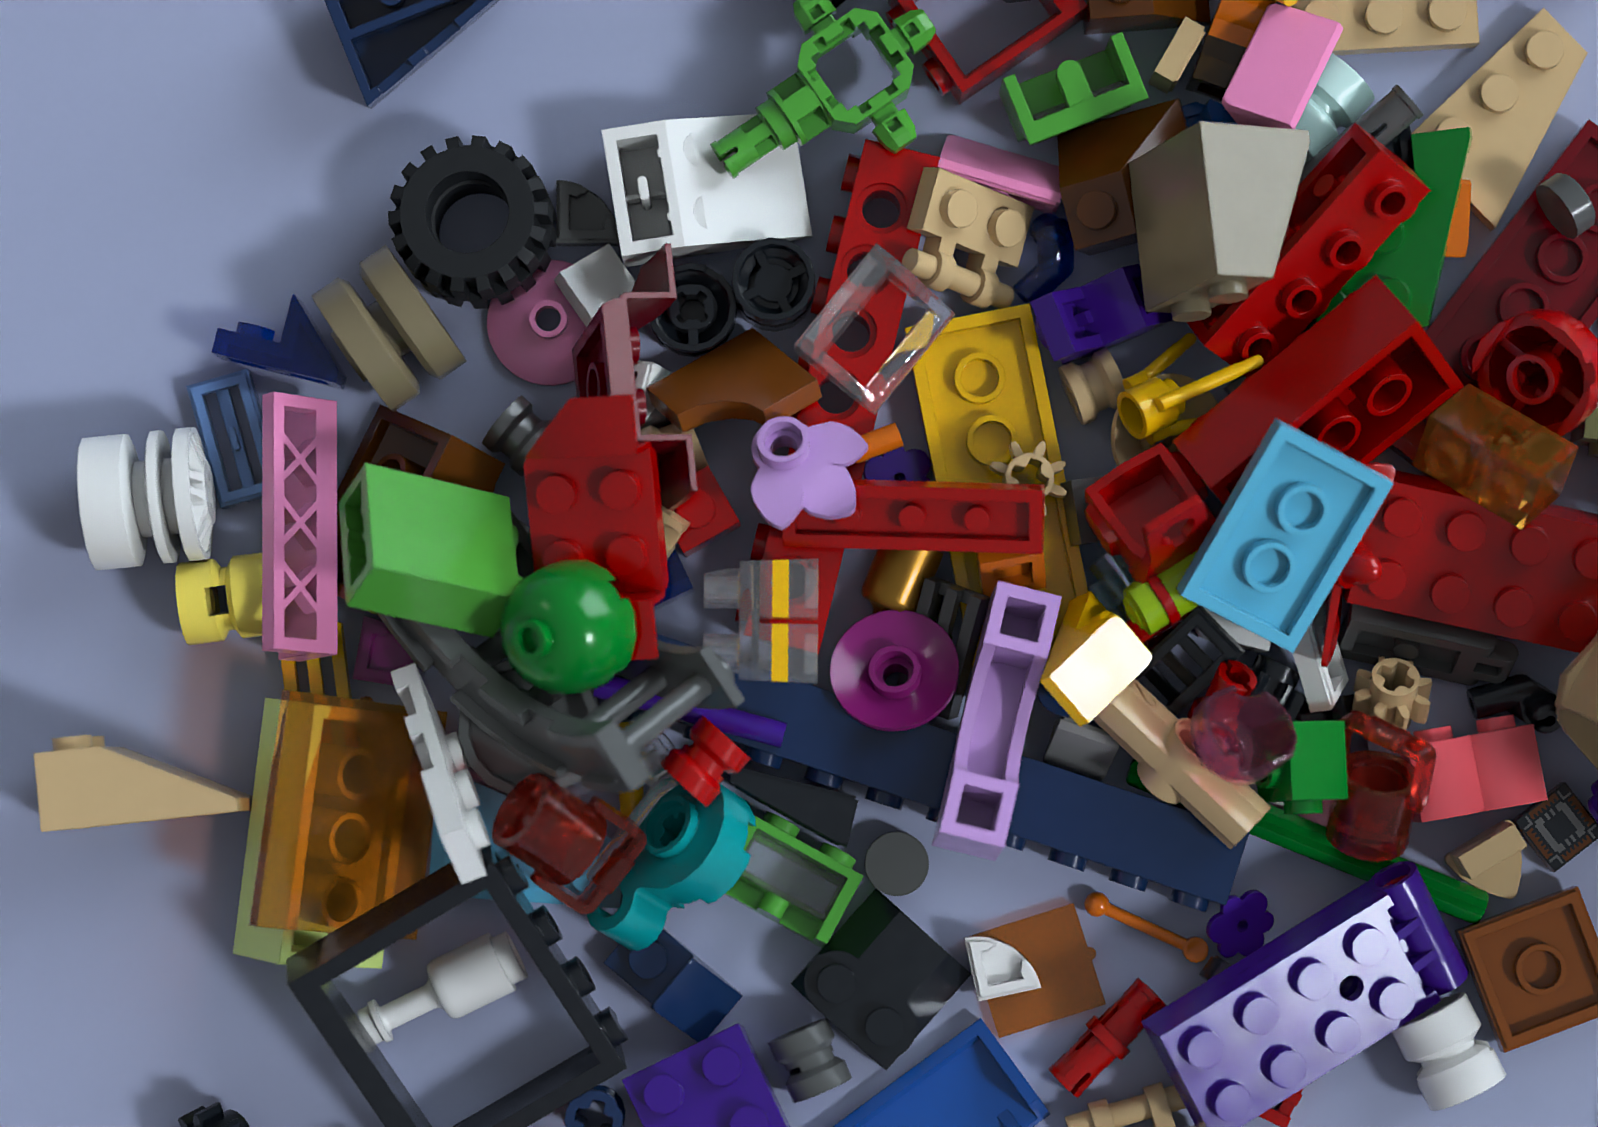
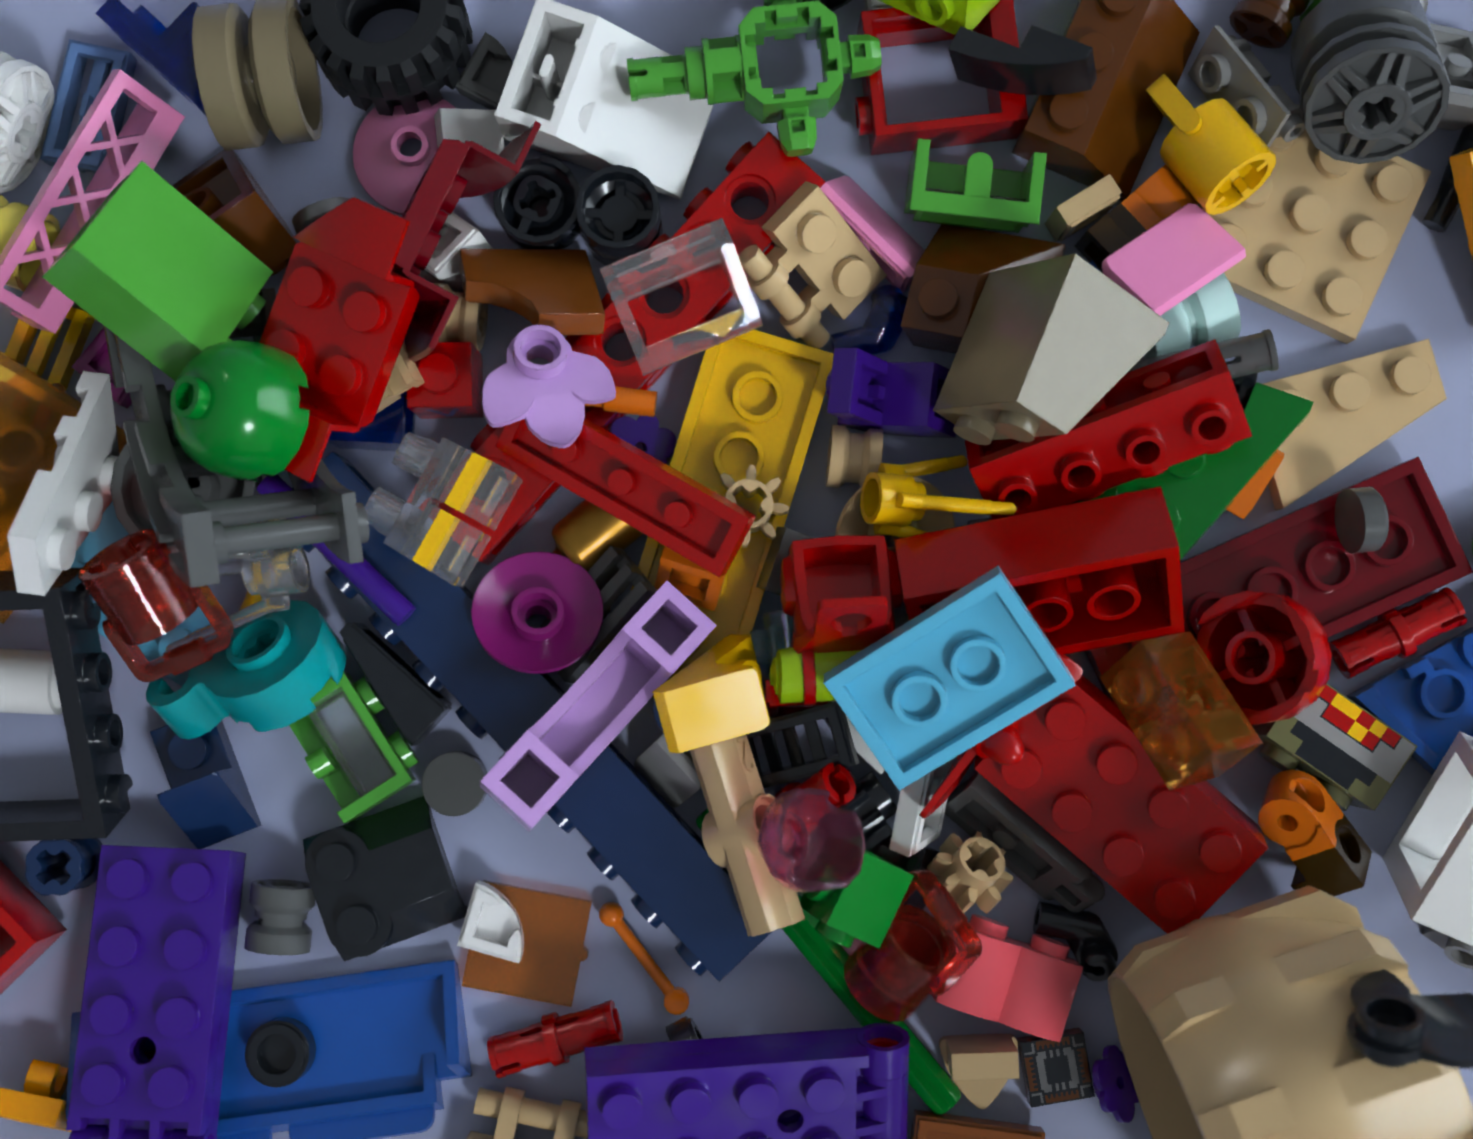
camera: 25 degrees right, 0 degrees up
(703, 763) = (307, 603): red wheel -> none
(1240, 924) = (727, 1002): dark purple plant -> none

